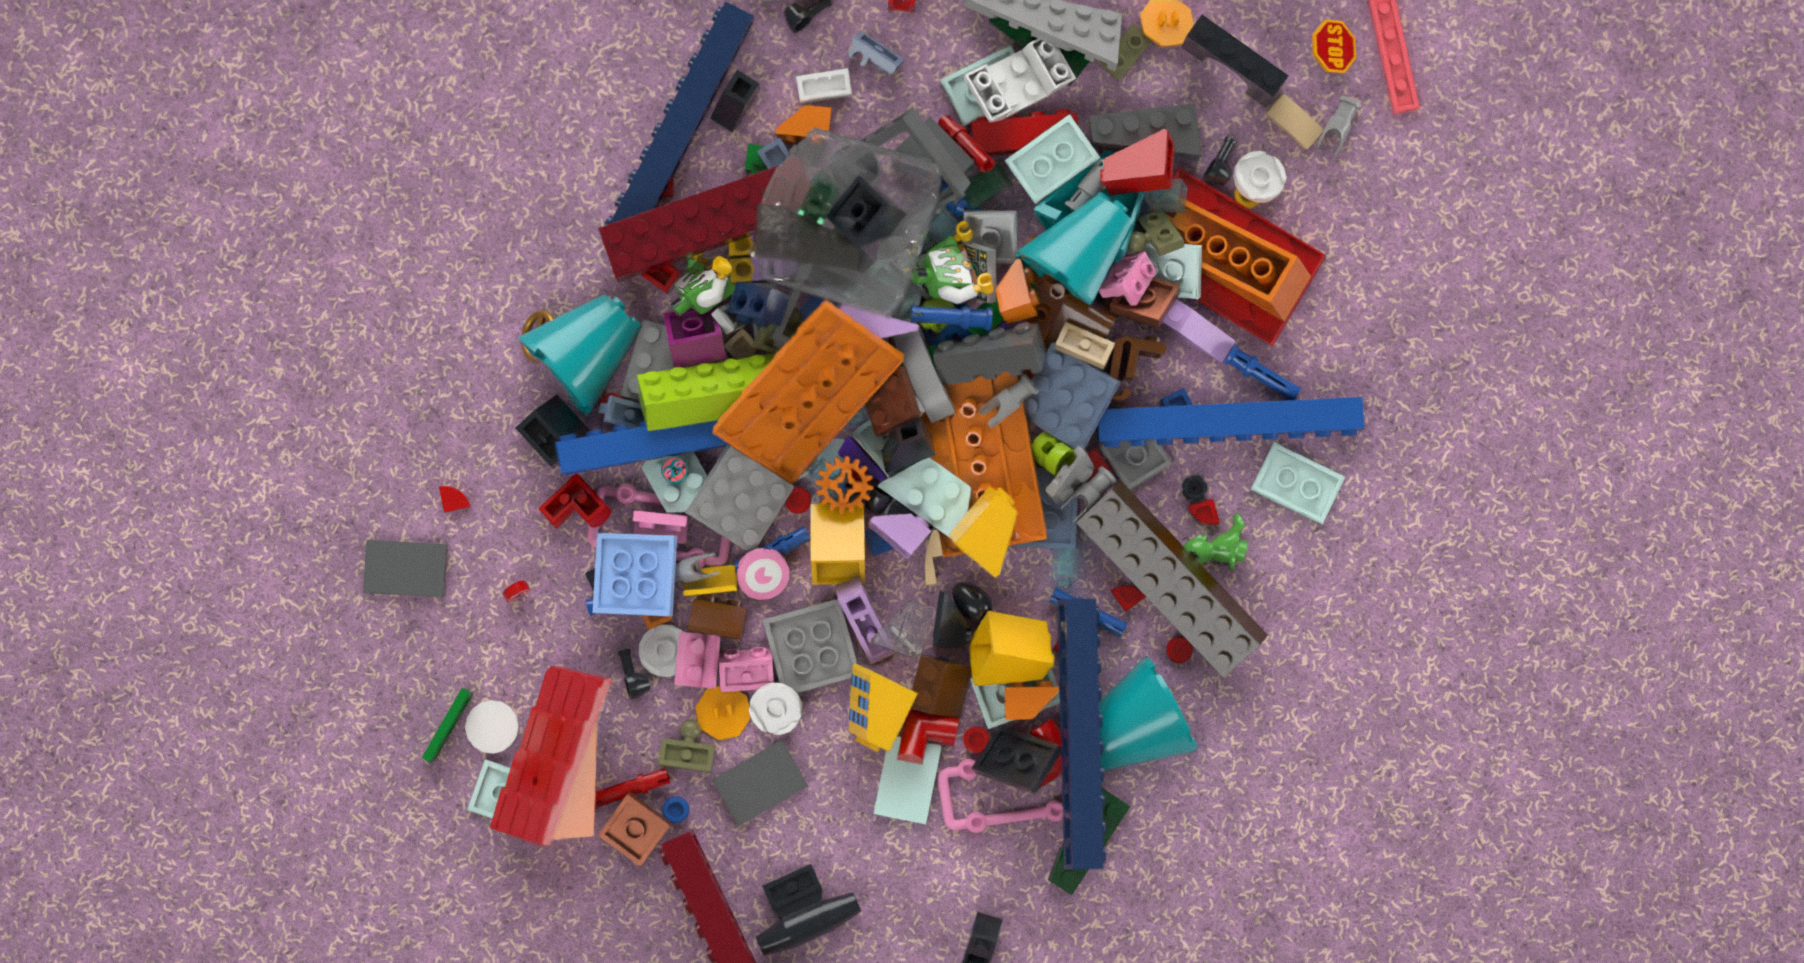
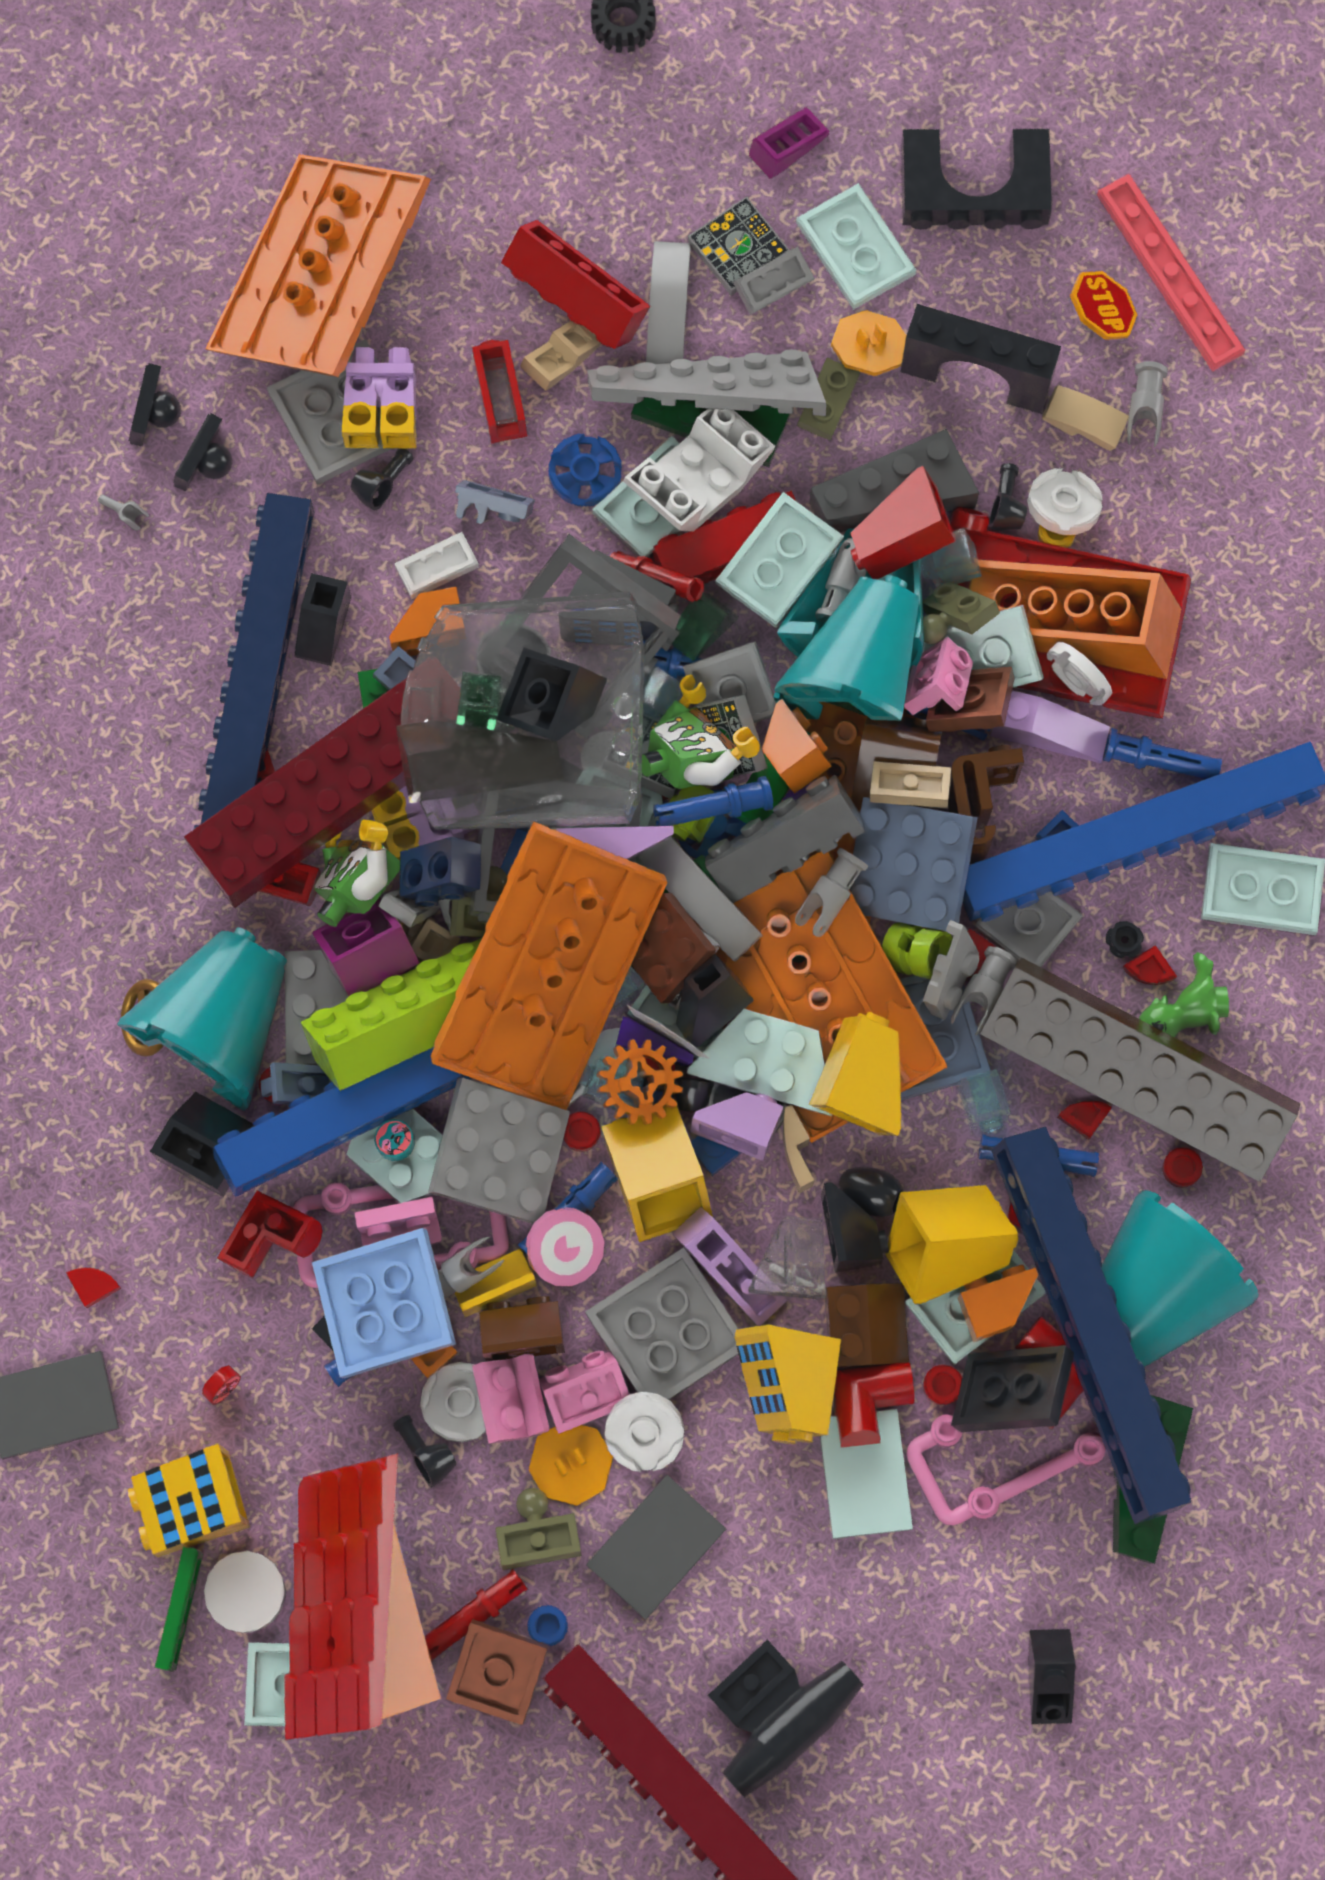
camera: 15 degrees left, 10 degrees down
(473, 660) = (188, 1501): none -> yellow slope
(944, 49) = (583, 469): none -> blue piece
(1191, 169) = (970, 519): none -> red tile
(1224, 303) = (1079, 673): none -> white tile

